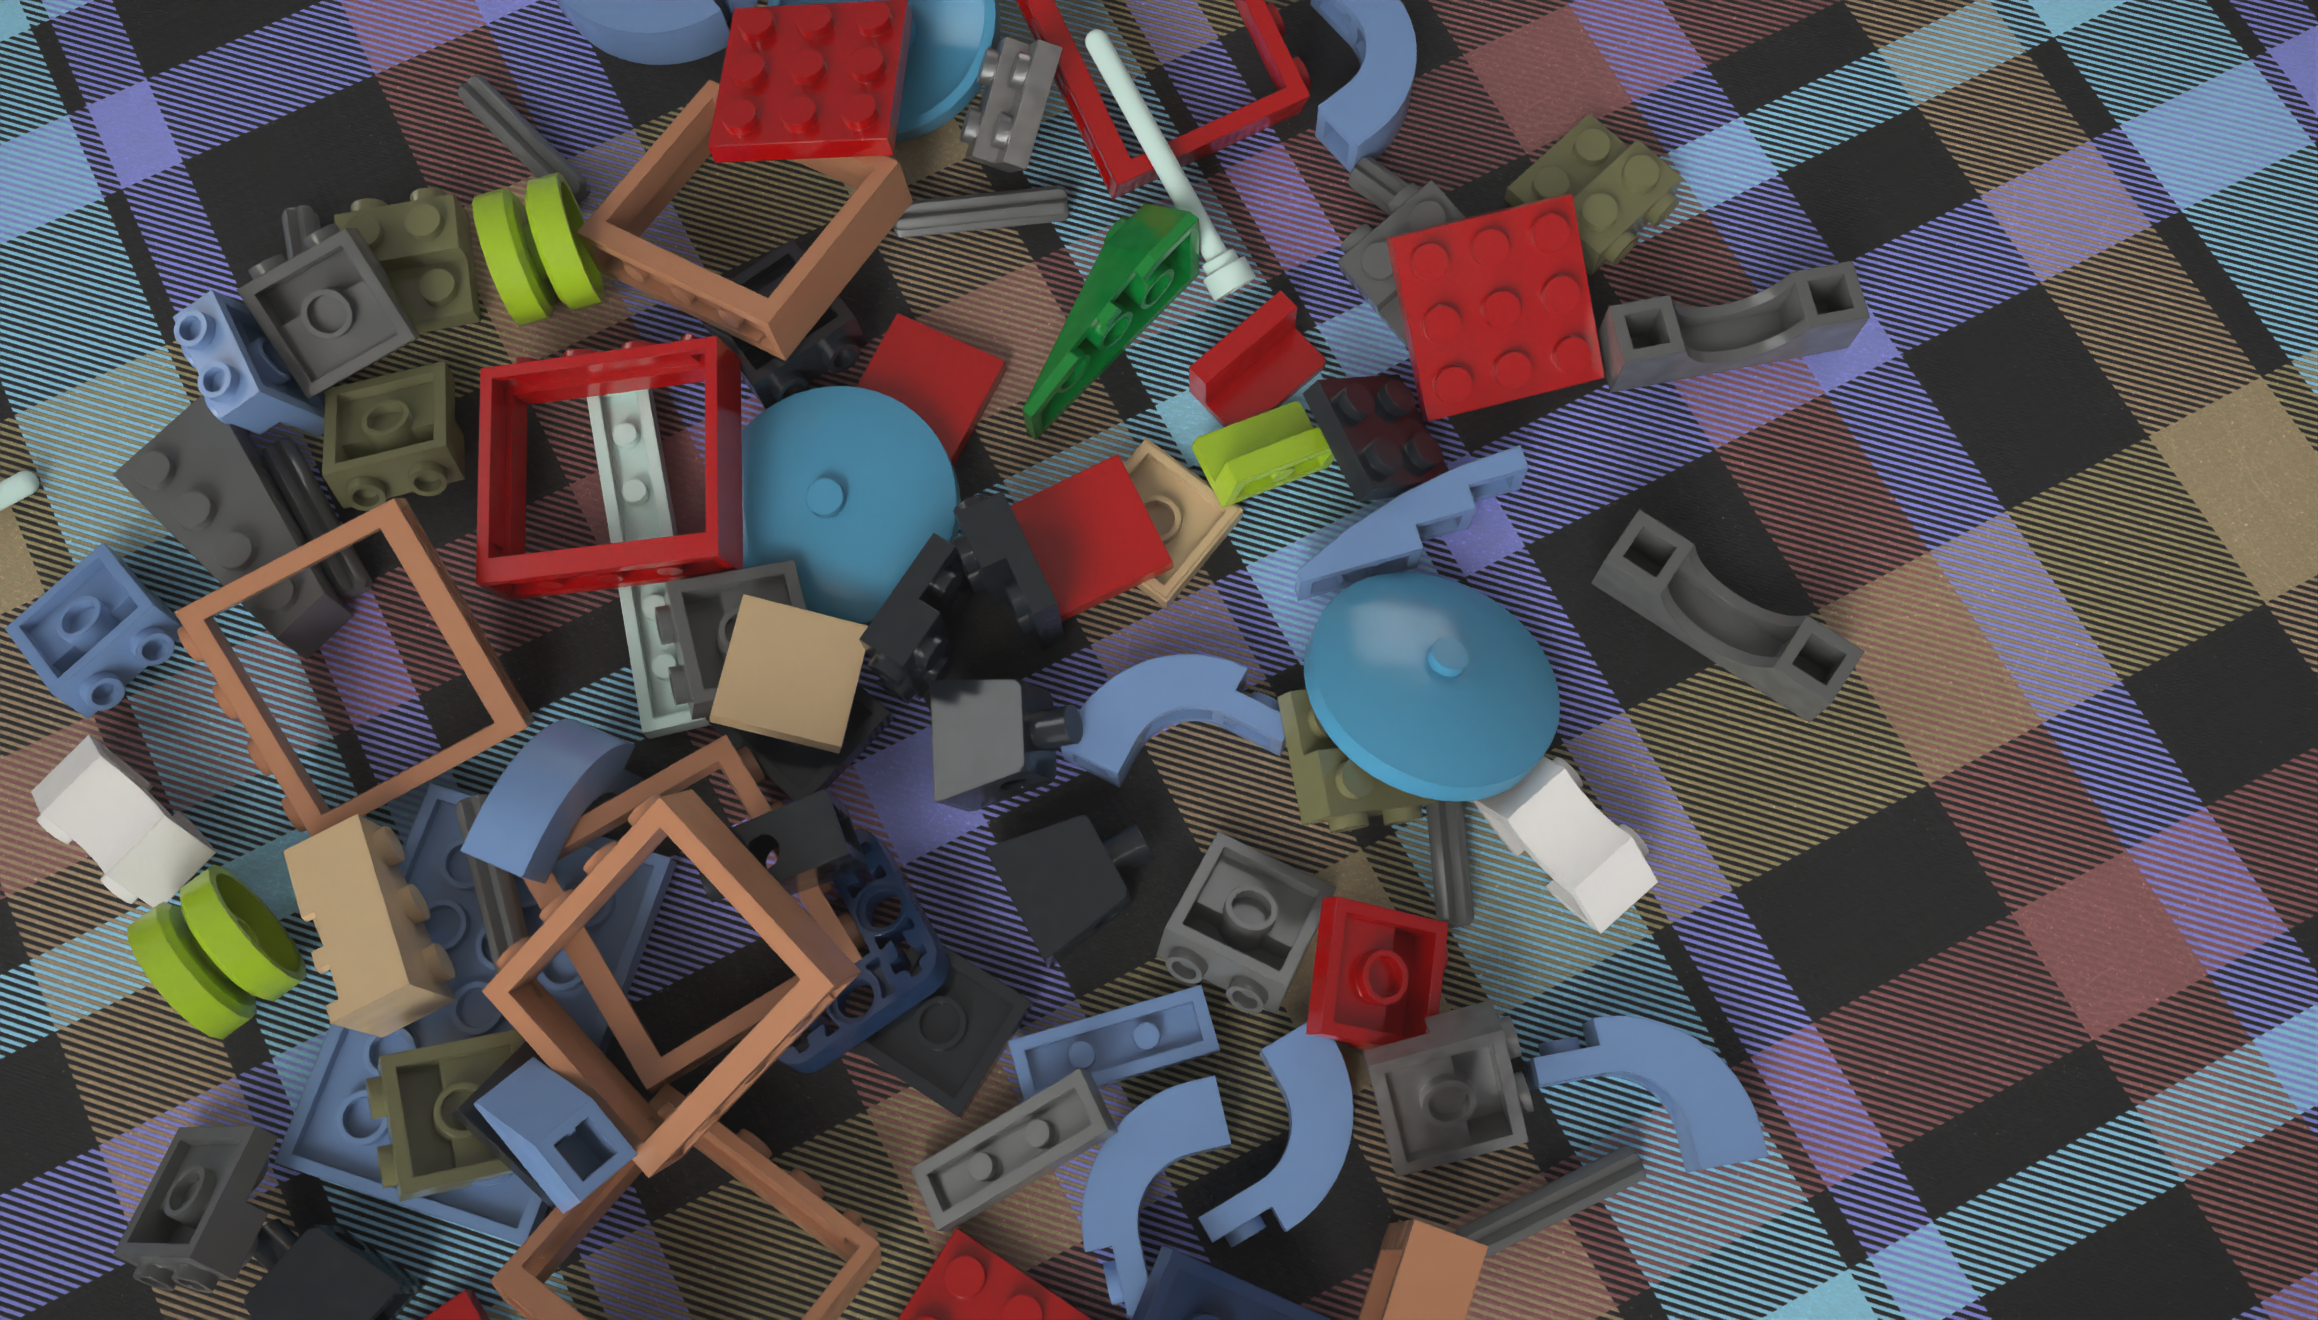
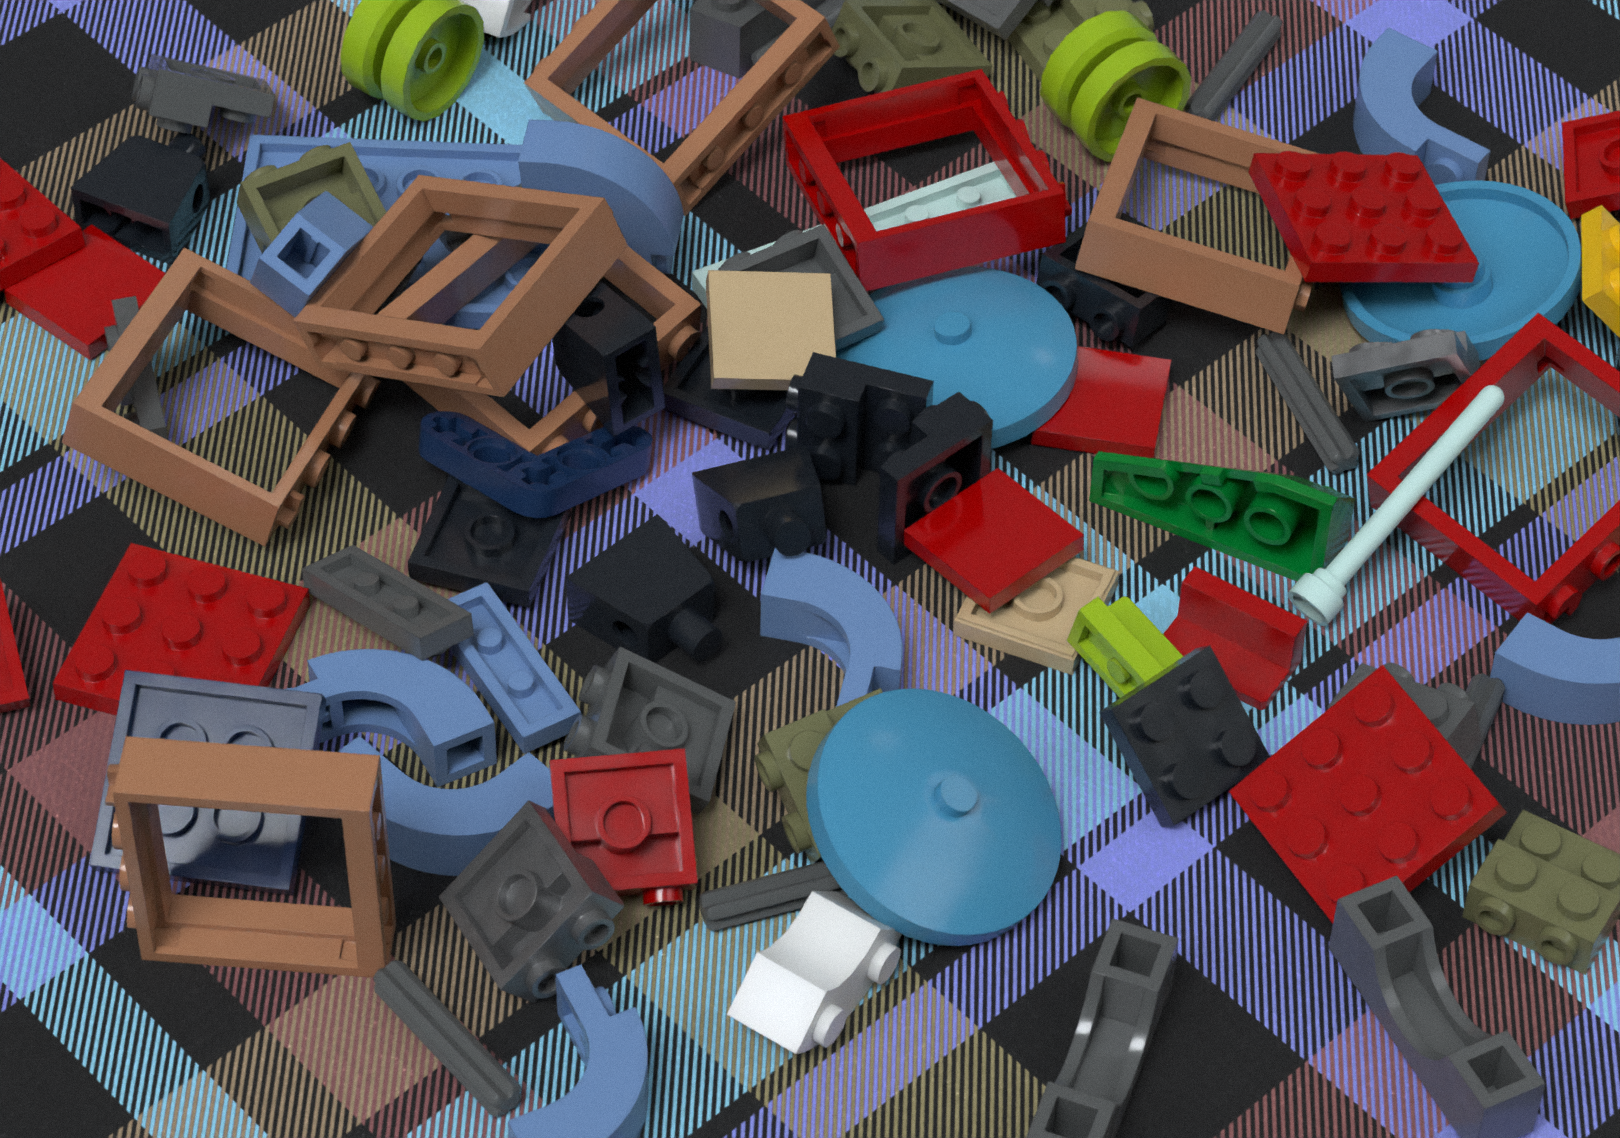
camera: 70 degrees right, 25 degrees down
(369, 928) = (453, 120): tan wedge -> none
(1394, 533) = (1100, 781): medium blue slope -> none

